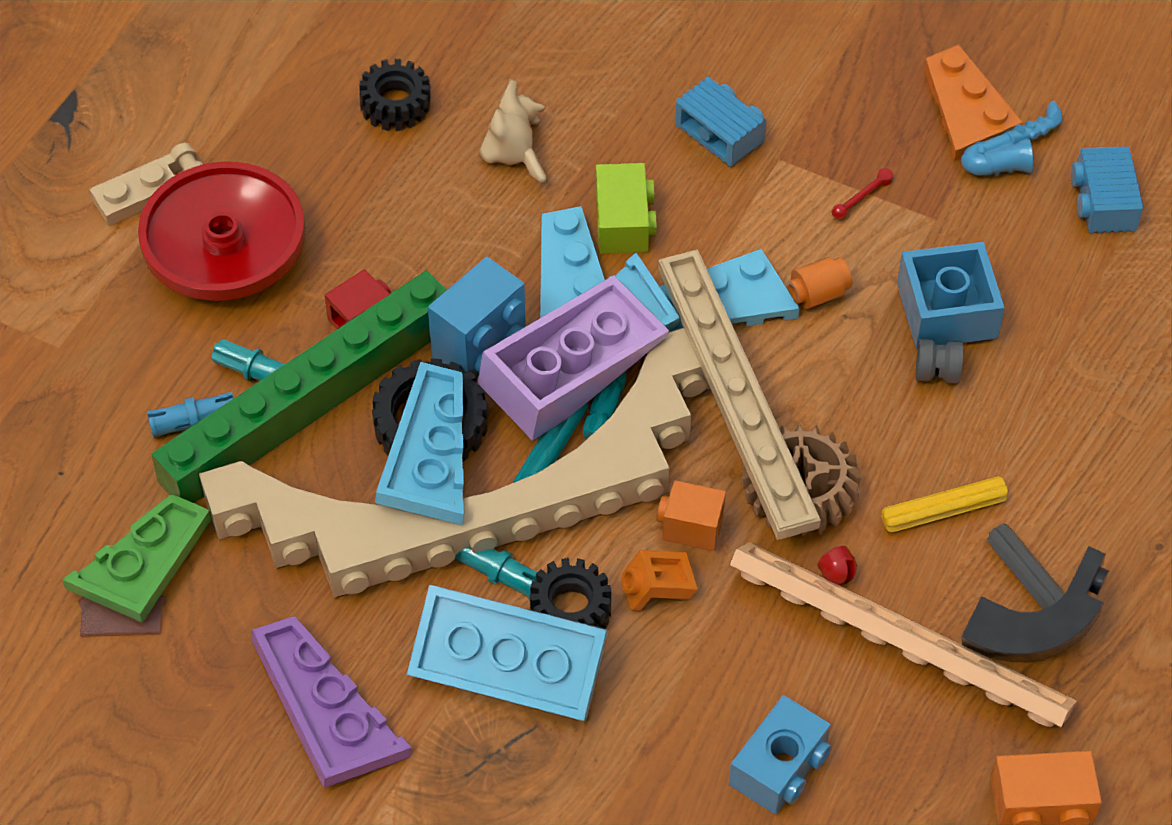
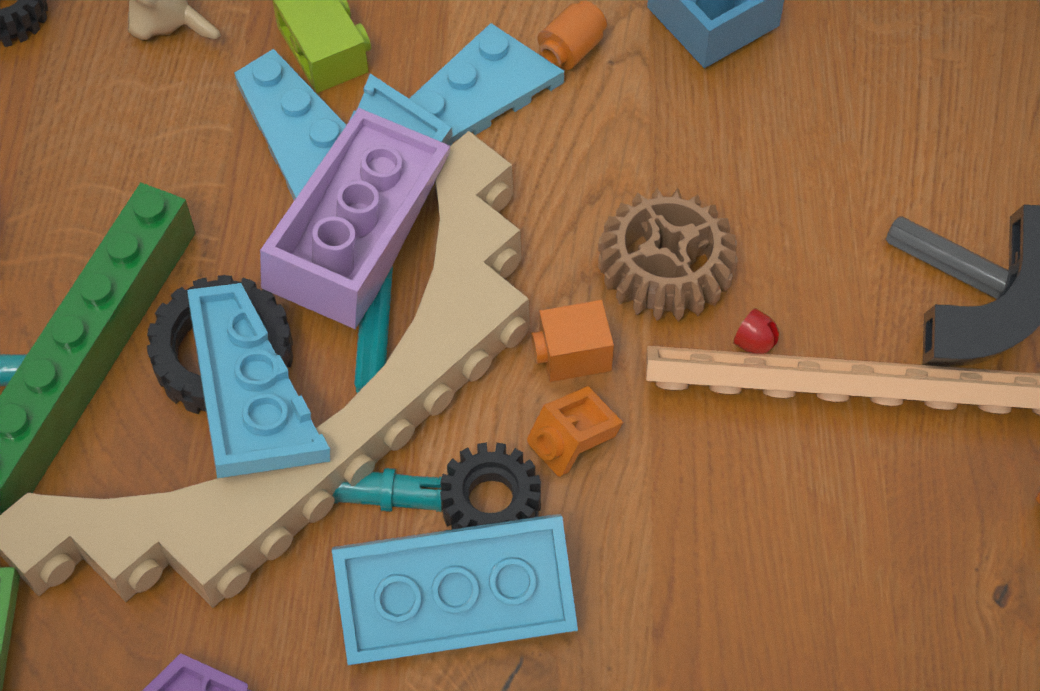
camera: 25 degrees left, 5 degrees up
(354, 297) = (69, 247): red brick -> none
(476, 315) = (226, 213): dark azure brick -> none
(604, 405) = (412, 265): teal axle -> none
(739, 396) = (562, 189): tan tile -> none
(785, 730) = (799, 602): dark azure brick -> none
(939, 361) = (739, 71): dark grey wheel -> none
(944, 504) = (824, 221): yellow axle -> none

